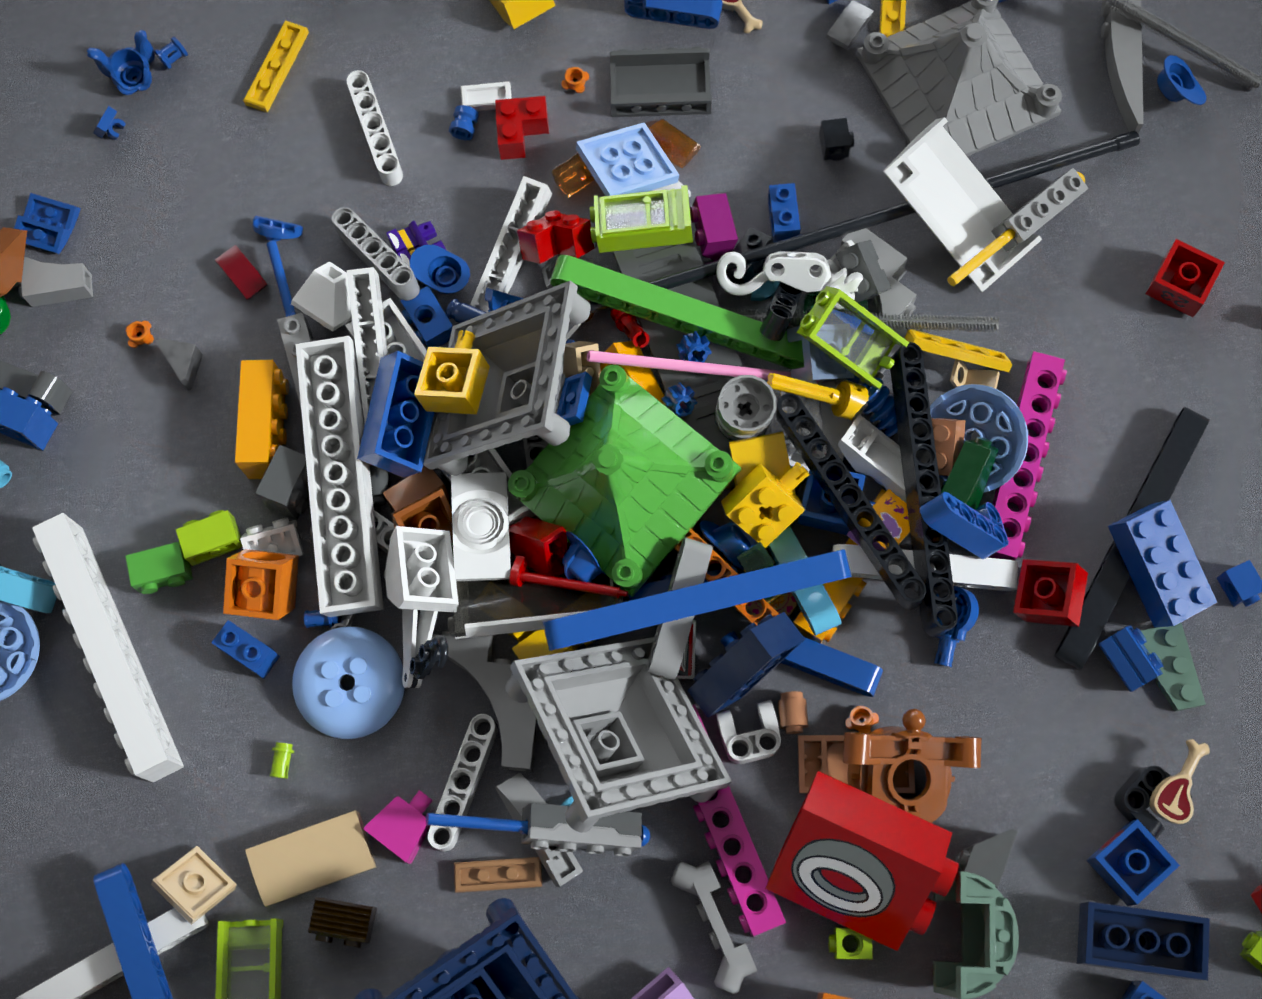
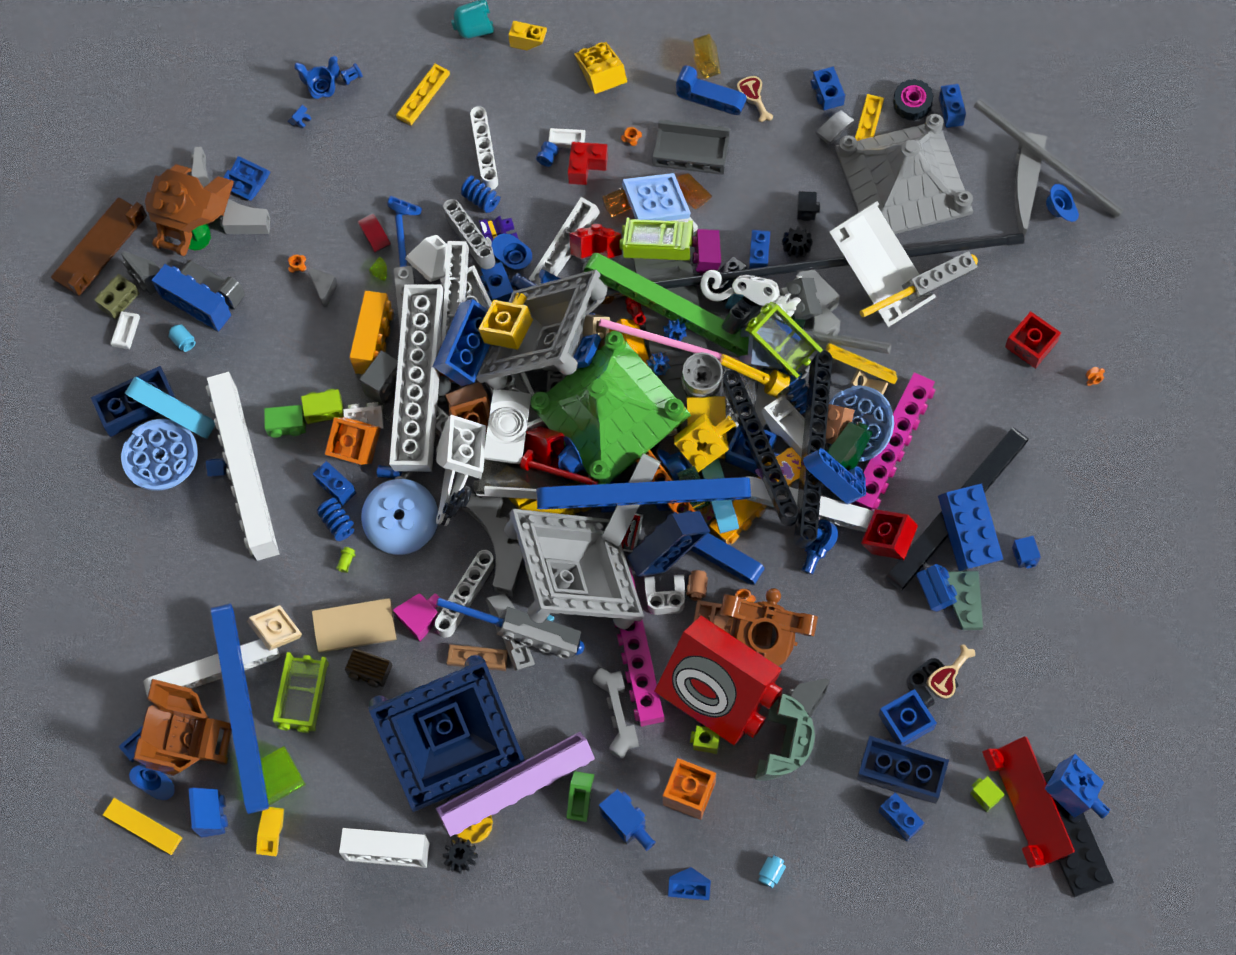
camera: 10 degrees right, 5 degrees down
(68, 654) = (216, 467): none -> blue piece
(255, 704) = (335, 519): none -> blue piece
(257, 323) = (379, 269): none -> clear neon green tile
(379, 196) = (479, 194): none -> blue piece
(832, 192) = (797, 242): none -> black gear

